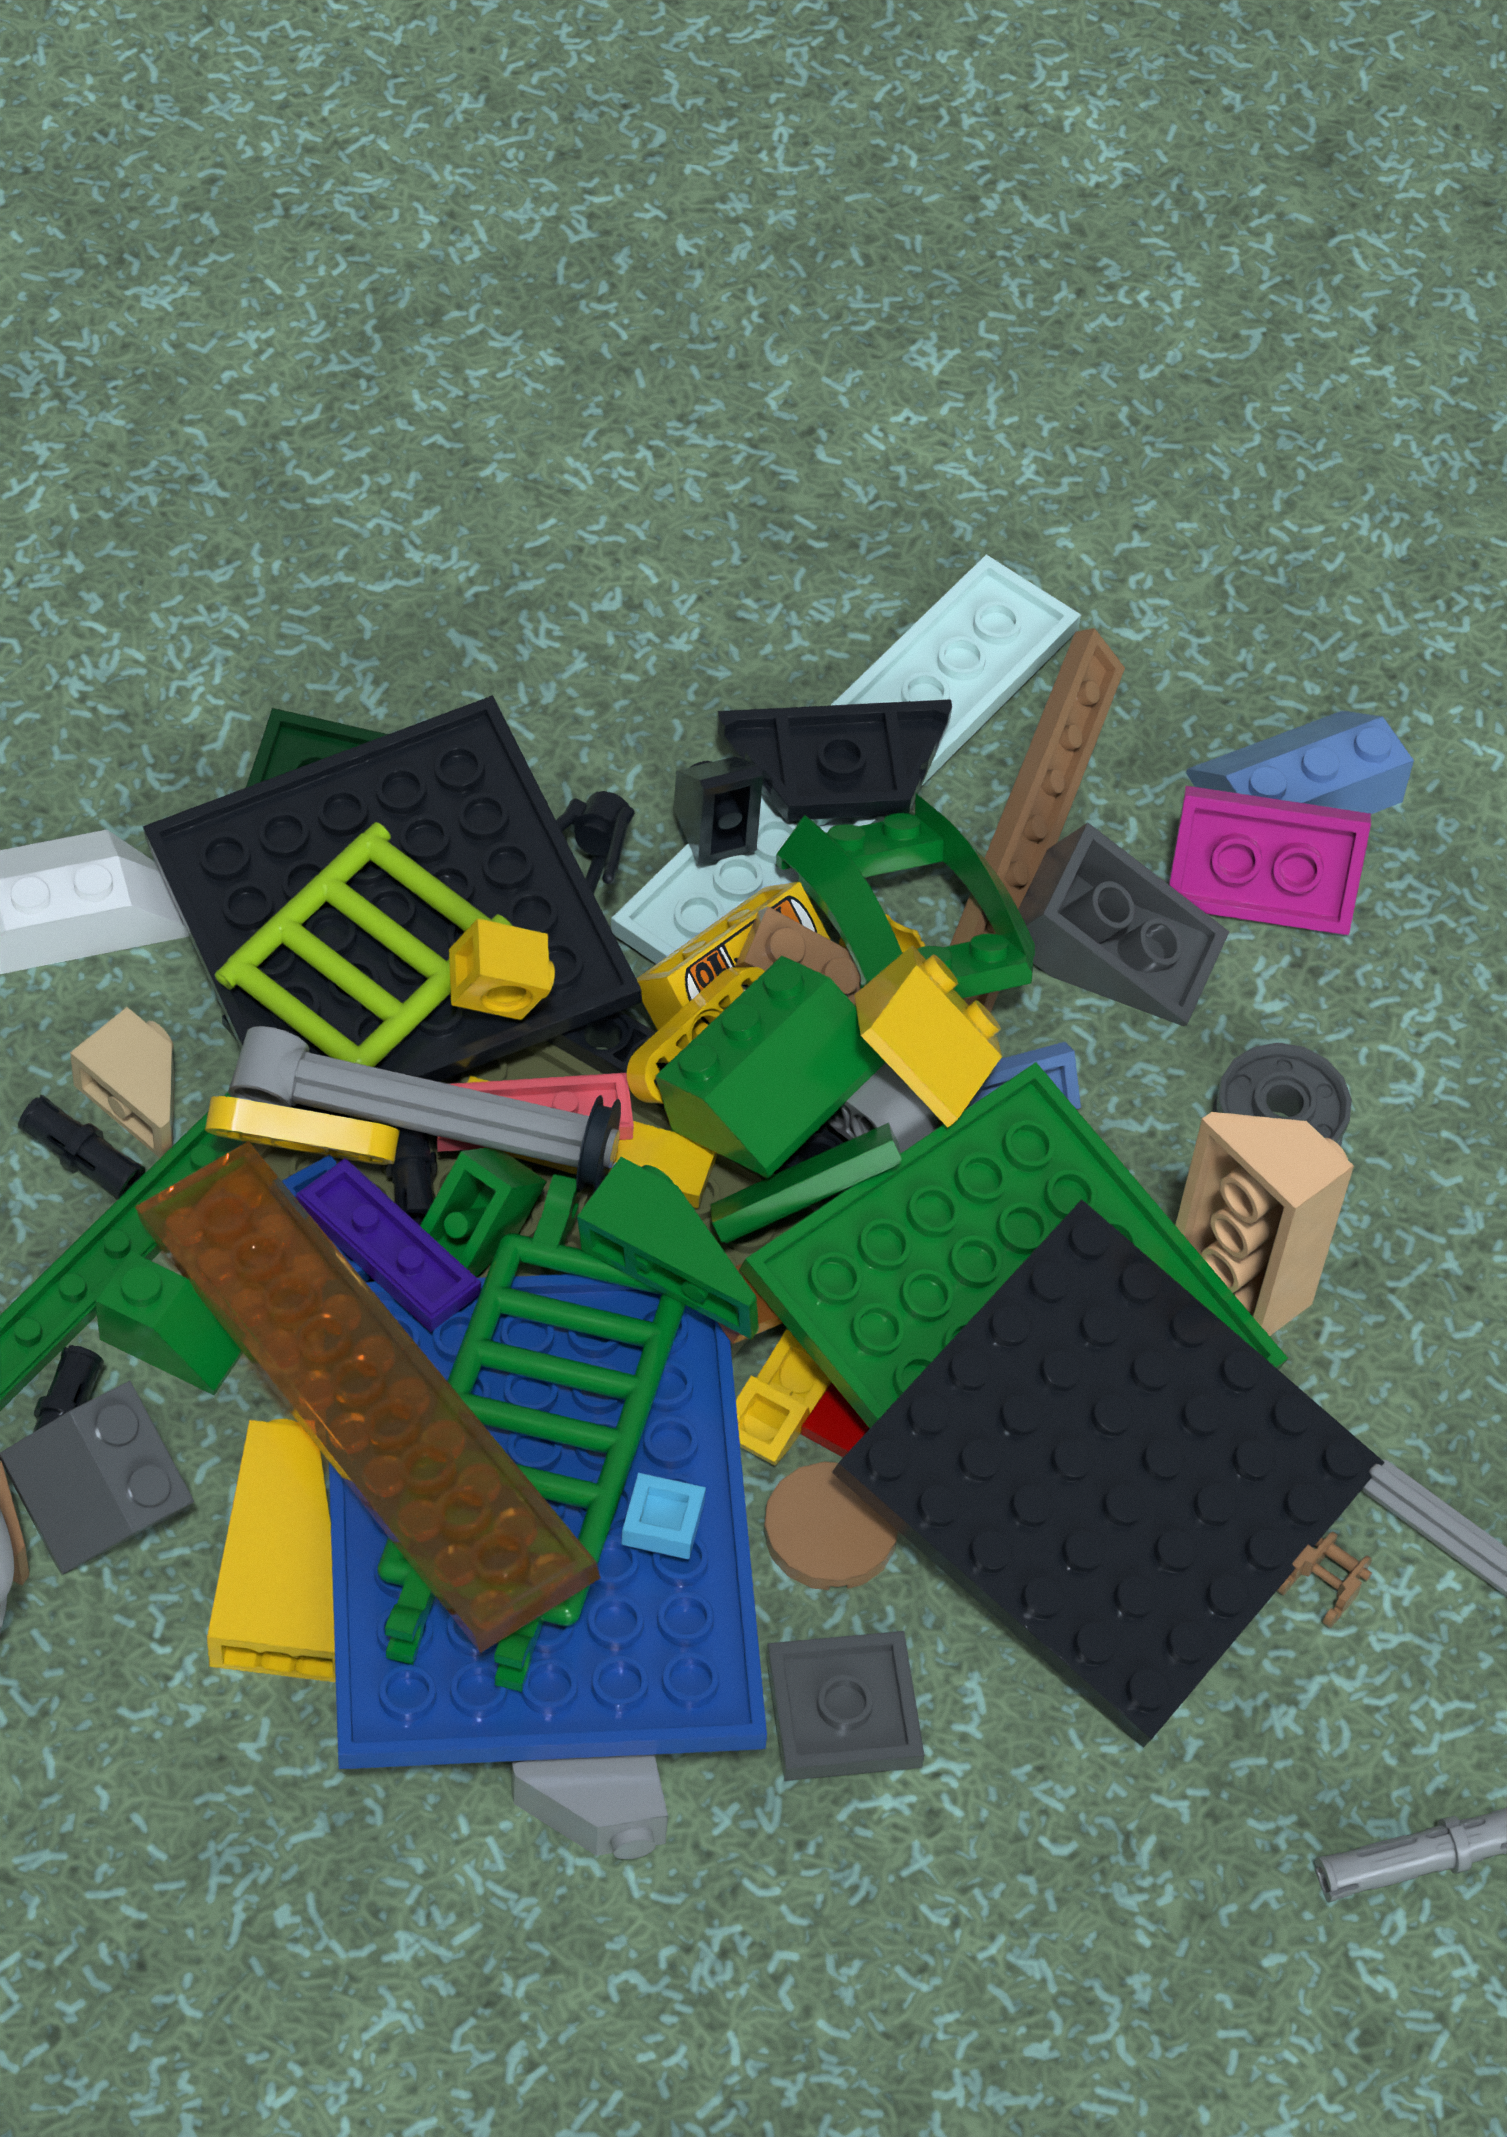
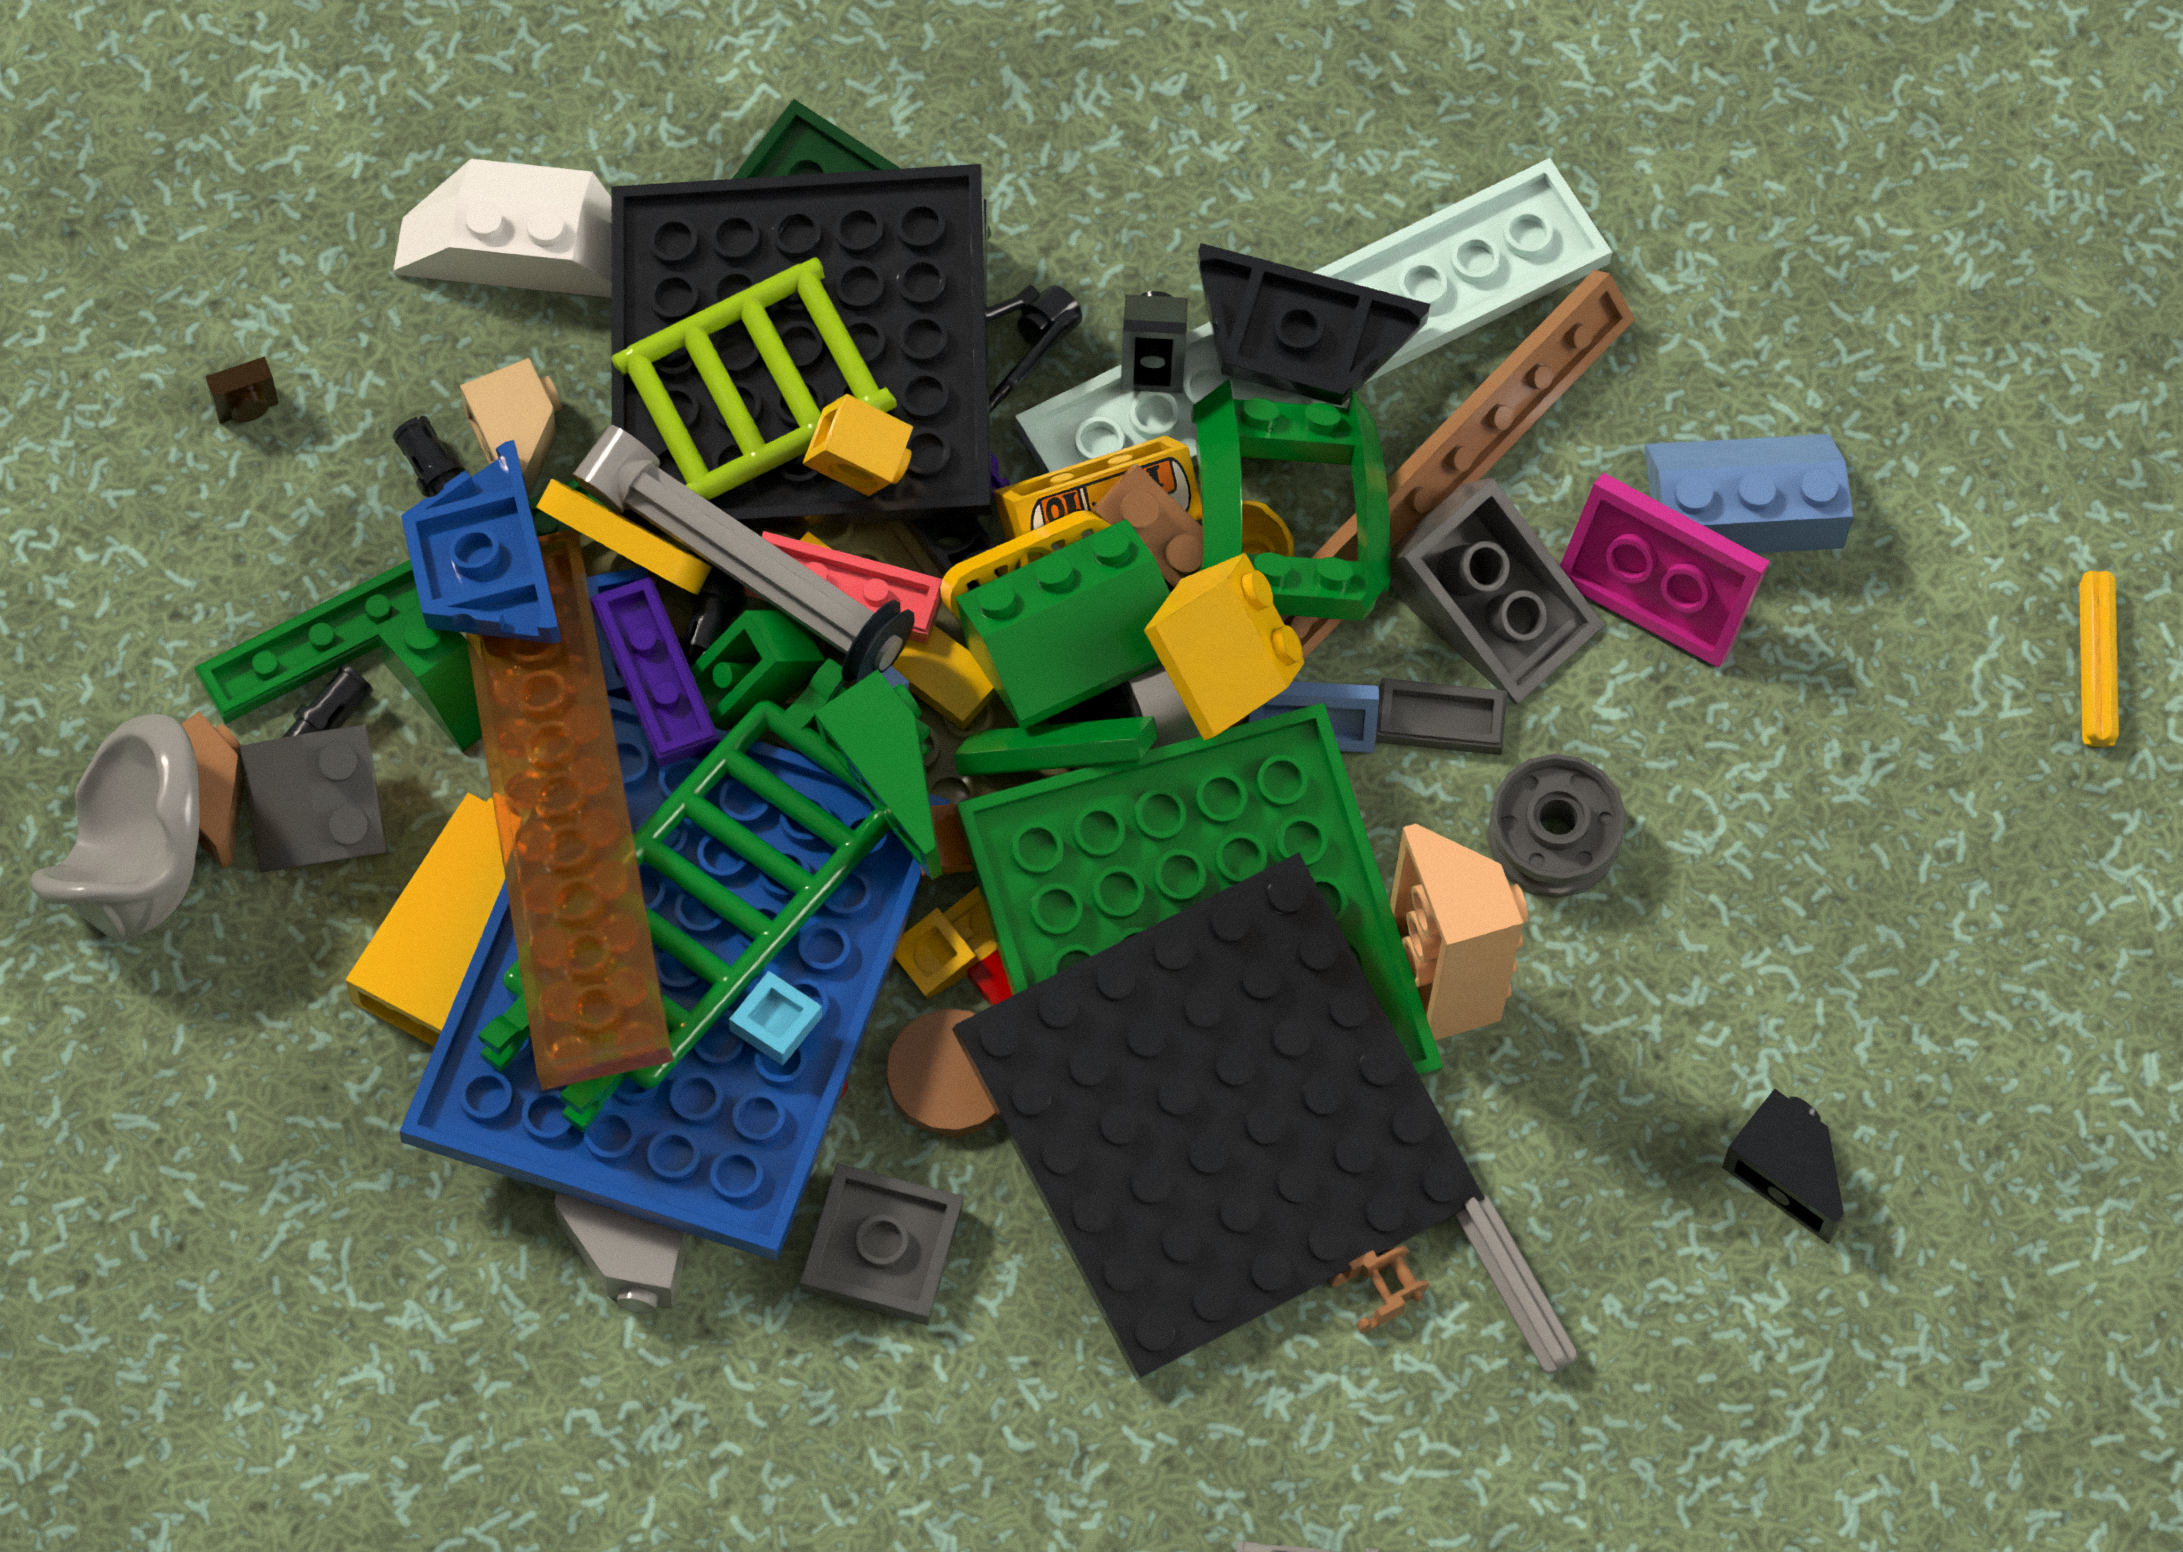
camera: 25 degrees right, 10 degrees up
(172, 1192) = (481, 556): none -> blue wing
(1130, 1055) = (1441, 716): none -> dark grey tile

